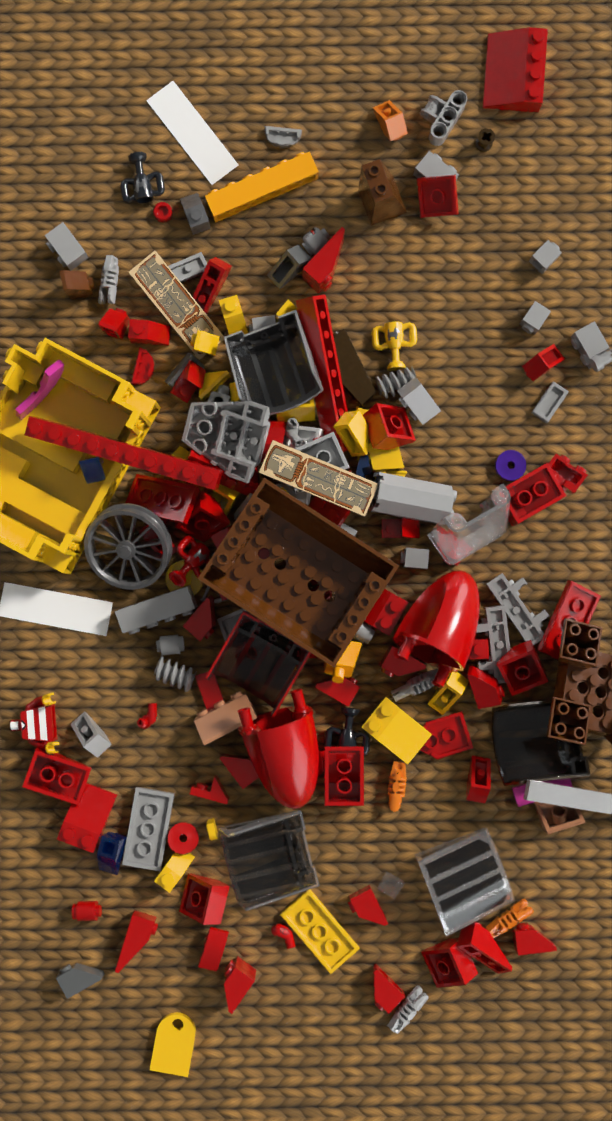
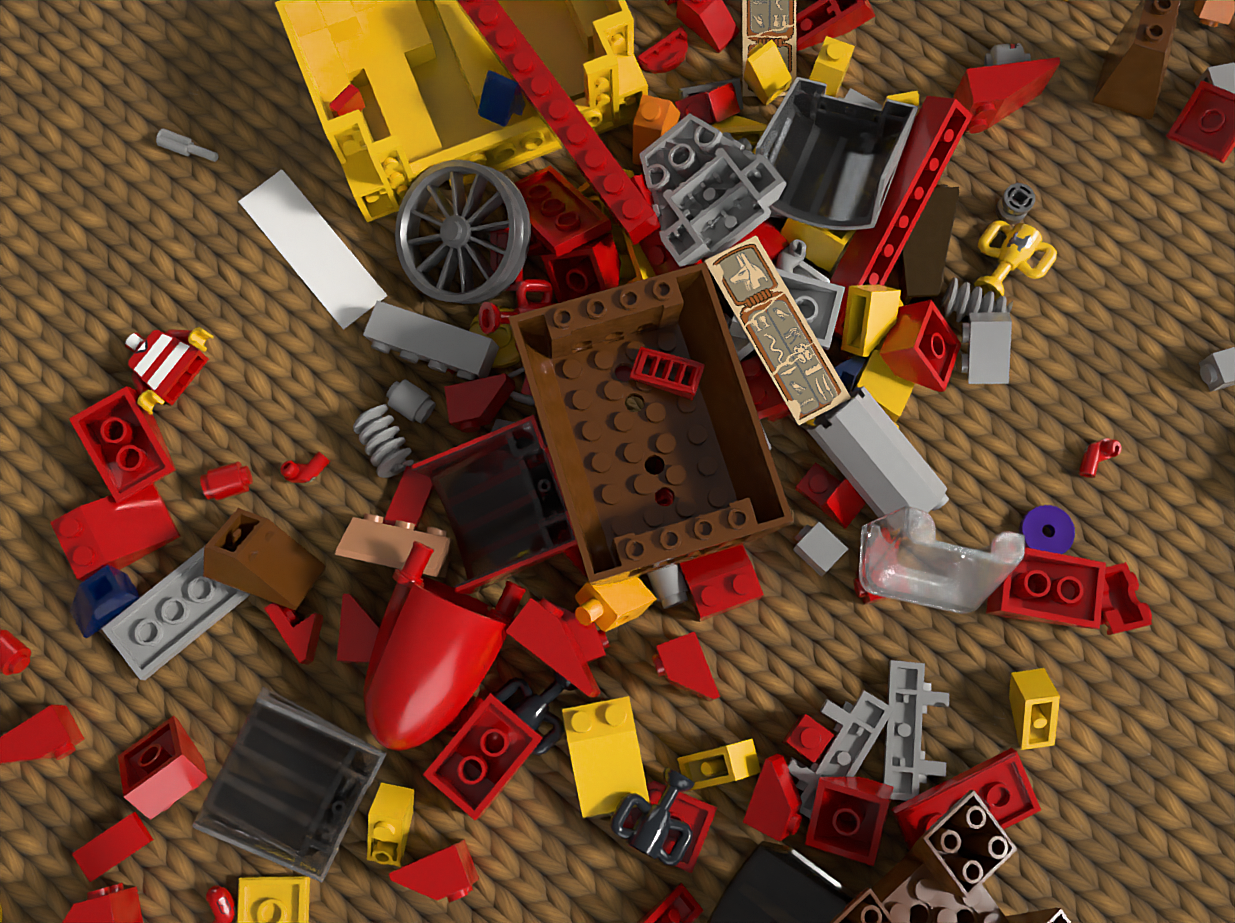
camera: 45 degrees right, 10 degrees down
(24, 534) = (347, 101): none -> red tile
(90, 735) = (213, 431): light grey slope -> none
(118, 752) = (226, 481): none -> red brick
(169, 774) = (261, 560): none -> reddish brown slope
(173, 416) = (651, 121): none -> orange slope
(173, 871) = (159, 692): yellow slope -> none
(189, 832) = (206, 677): red piece -> none
(212, 829) = (253, 682): yellow tile -> none
(289, 266) = (945, 66): dark grey slope -> none
(301, 534) = (683, 364): none -> red slope
(326, 837) = (389, 824): none -> yellow slope
(332, 702) = (551, 640): none -> red slope
(366, 840) = (440, 874): none -> red slope
(373, 311) = (1010, 209): none -> flat silver wheel
(397, 785) = (544, 834): orange hinge -> none
(415, 685) = (686, 720): light grey hinge -> none
(441, 625) = (784, 661): red windscreen -> none
(441, 740) = (654, 823): none -> black piece
(505, 408) = (1098, 452): none -> red arm
(543, 362) = (1196, 431): red slope -> none
(549, 402) = (1166, 492): light grey tile -> none
(564, 553) = (1034, 708): none -> yellow slope

